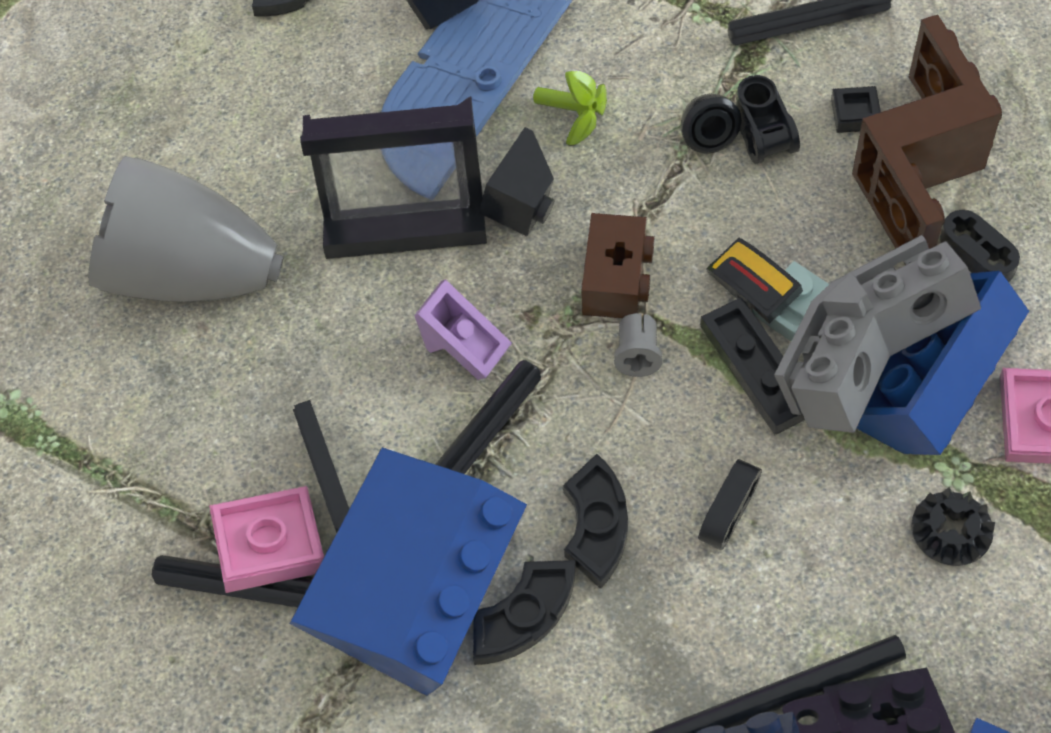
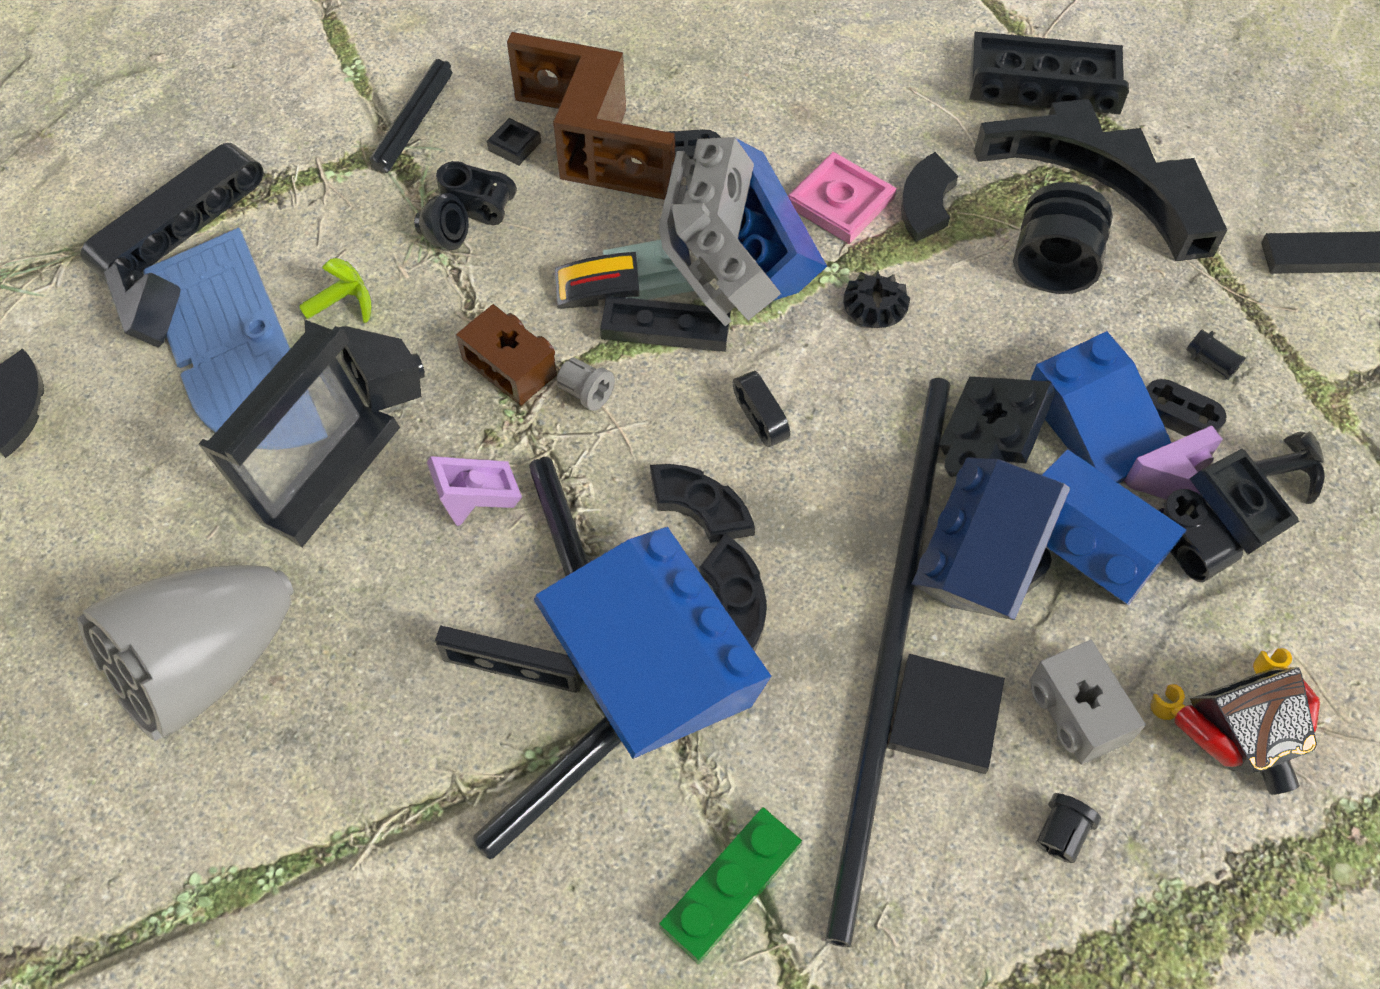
camera: 60 degrees left, 0 degrees up
(266, 539) = (530, 740): bright pink tile -> none

